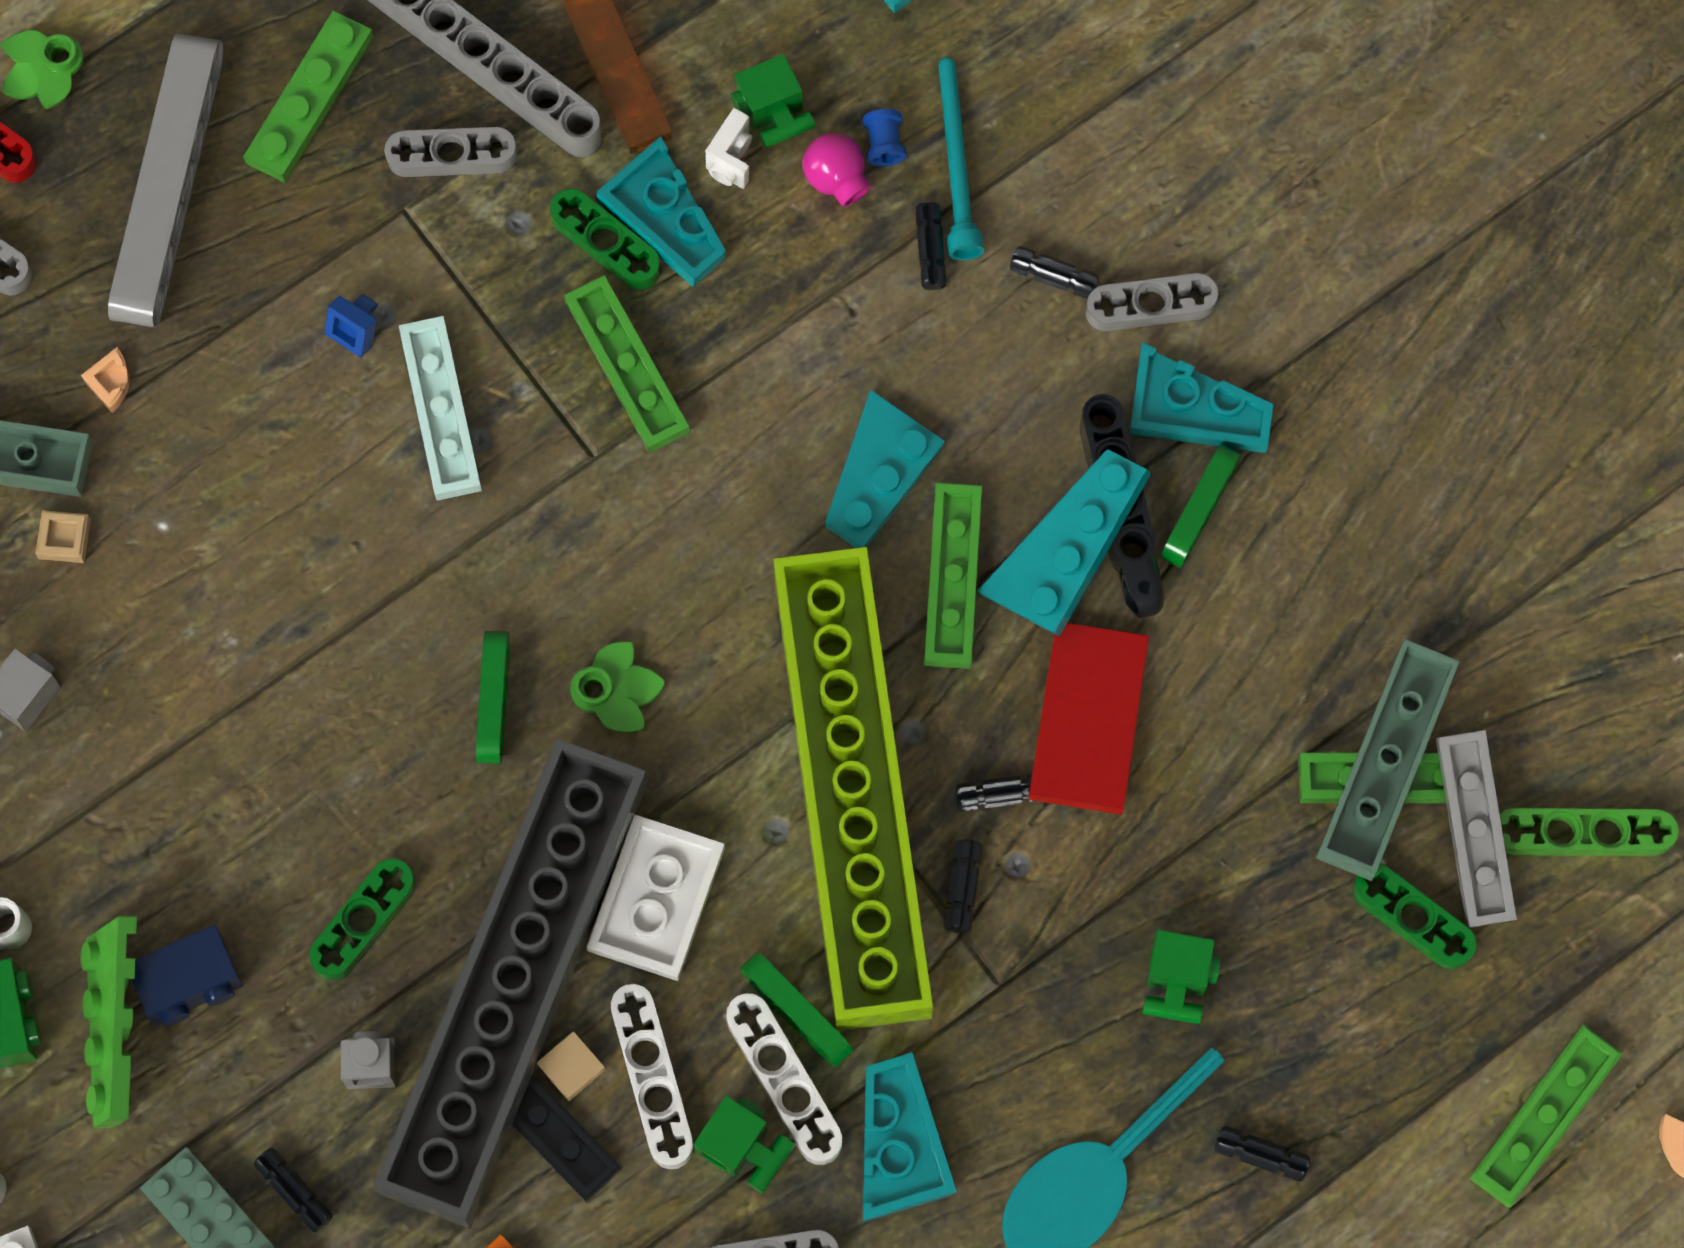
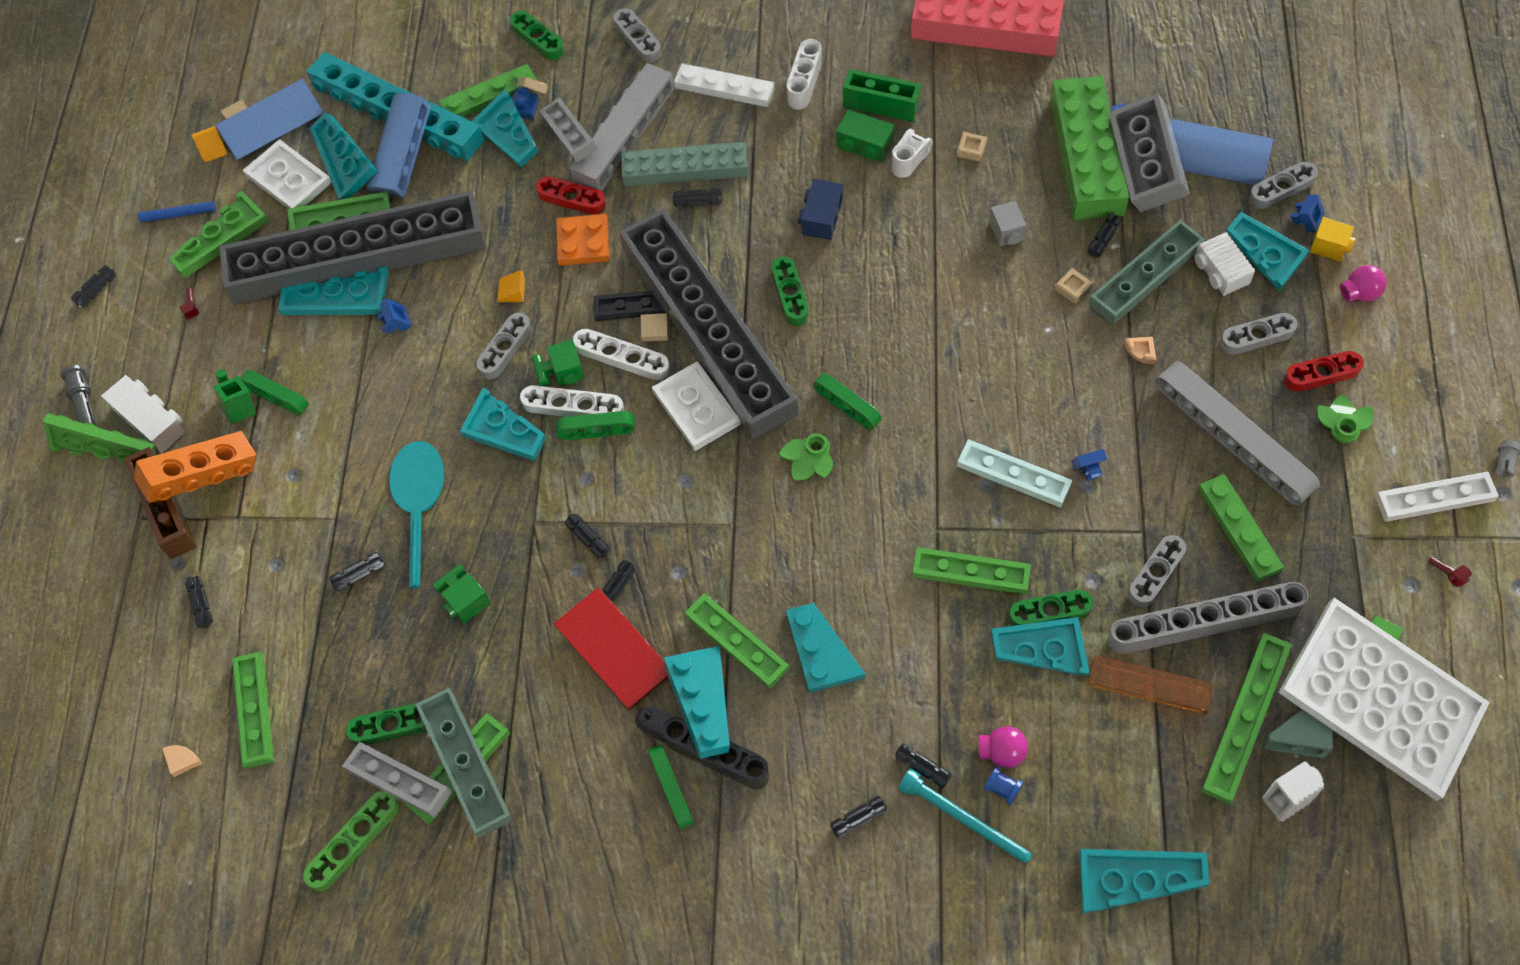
camera: 135 degrees right, 10 degrees down
(109, 1021) = (816, 163): bright green wing -> none
(368, 1061) = (723, 251): light grey brick -> none
(727, 149) = (1058, 703): white bracket -> none
(769, 96) = (1073, 743): green brick -> none
(852, 790) = (673, 515): lime brick -> none
(1117, 294) = (783, 870): light grey beam -> none
(1193, 408) = (725, 827): teal wing -> none

